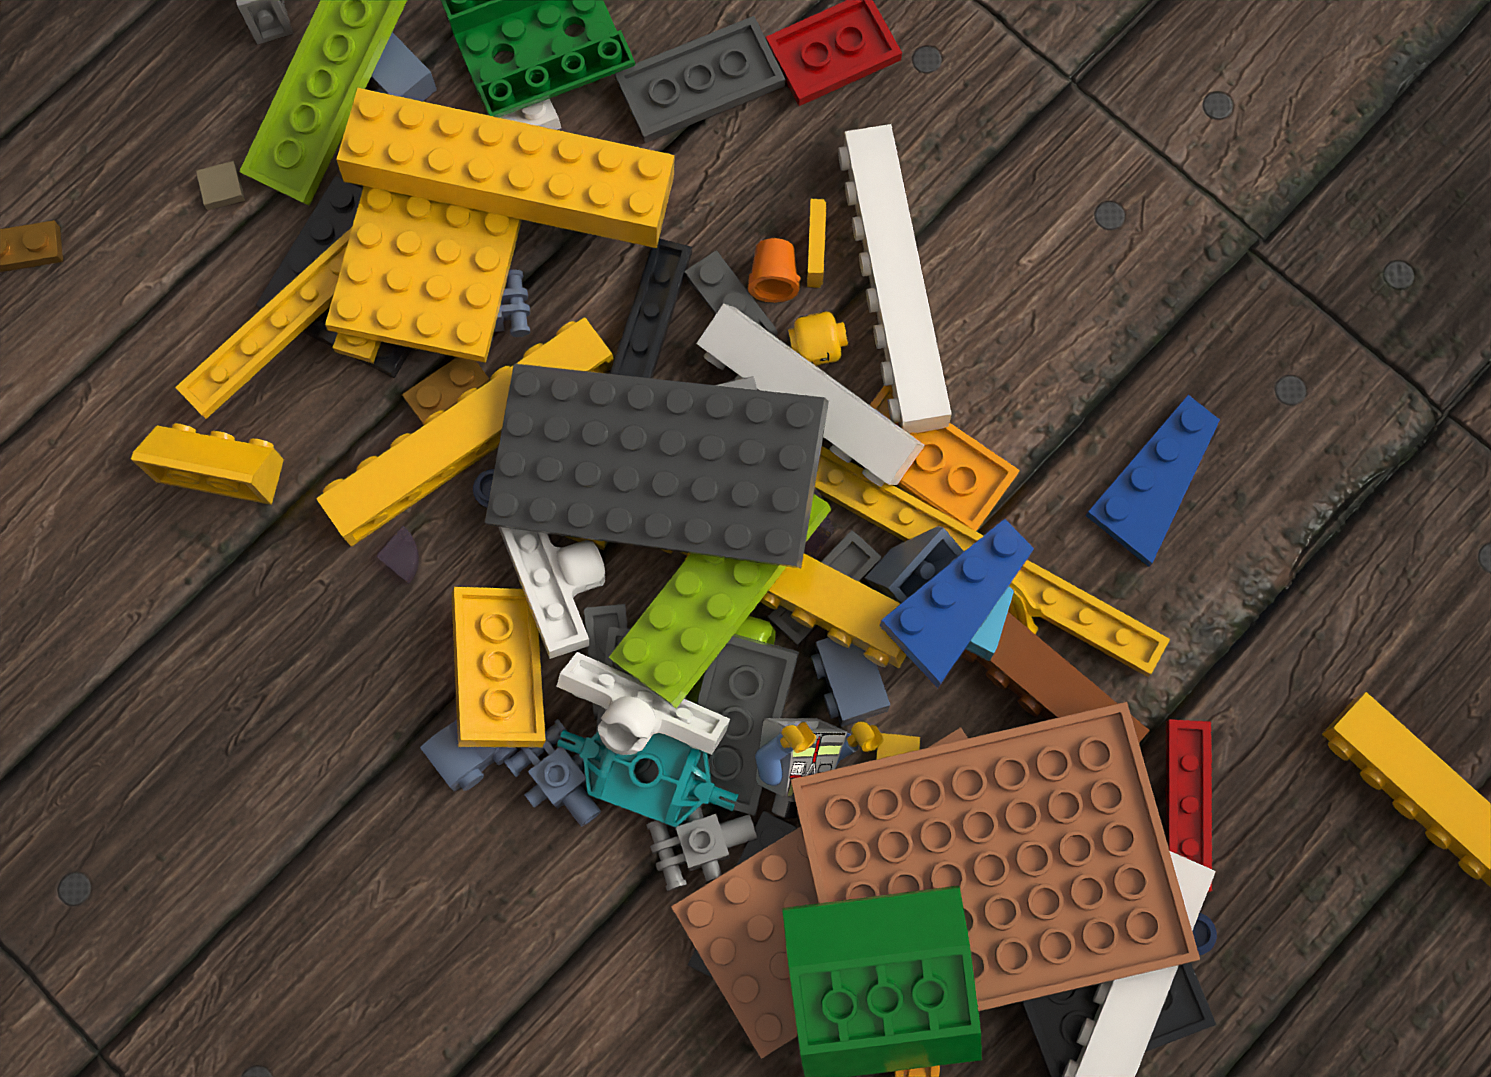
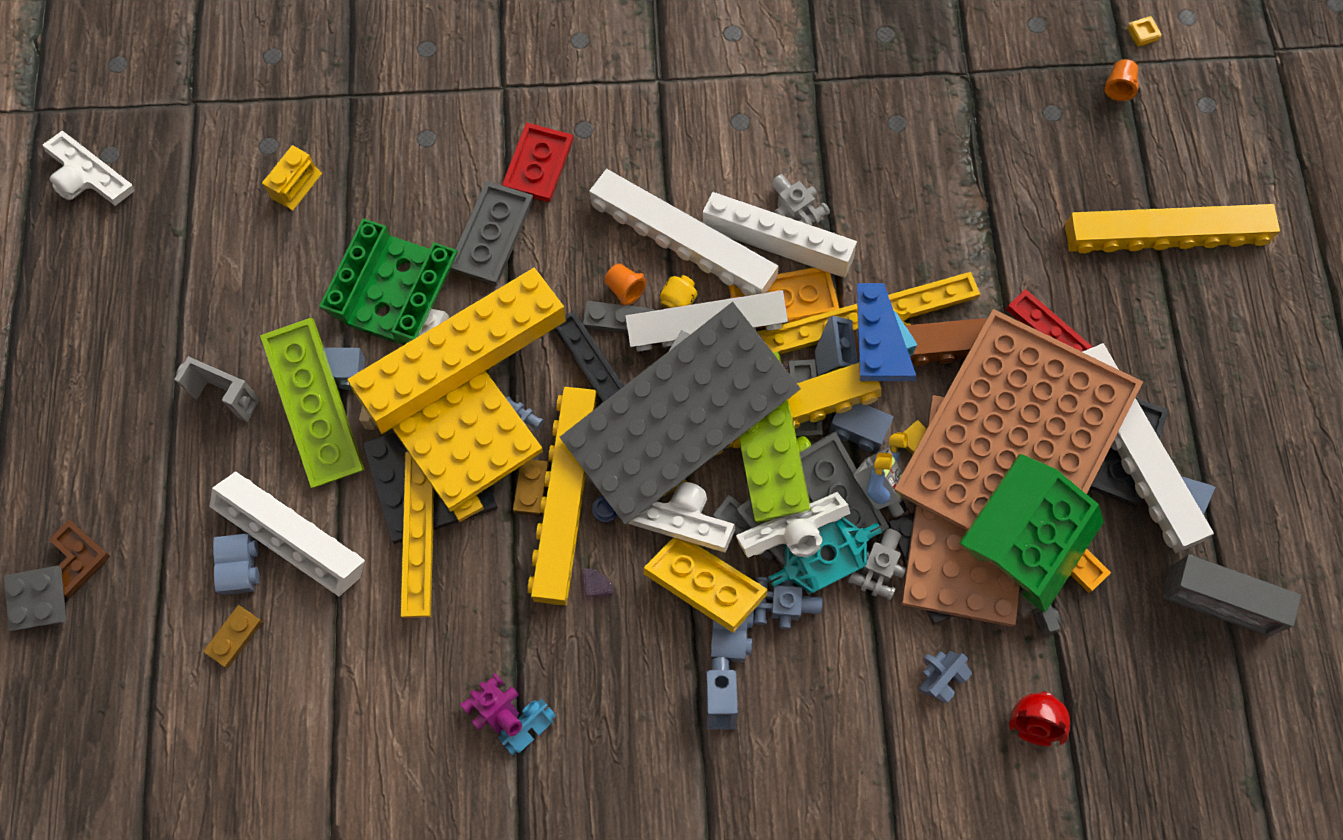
camera: 50 degrees left, 5 degrees down
(91, 176) = (235, 564): none -> sand blue brick
(163, 620) = (533, 717): none -> dark azure hinge
(167, 195) = (287, 533): none -> white brick
(167, 571) = (494, 707): none -> magenta piece
(210, 462) = (457, 634): yellow slope -> none
(220, 185) = (307, 504): dark tan tile -> none
(376, 810) = (721, 695): none -> sand blue torso
(633, 1019) = (940, 671): none -> sand blue hips
(816, 243) = (629, 253): yellow tile -> none
(998, 382) = (779, 234): none -> white brick
(1062, 369) = (797, 201): none -> light grey piece
(1152, 486) = (888, 216): blue wing -> none

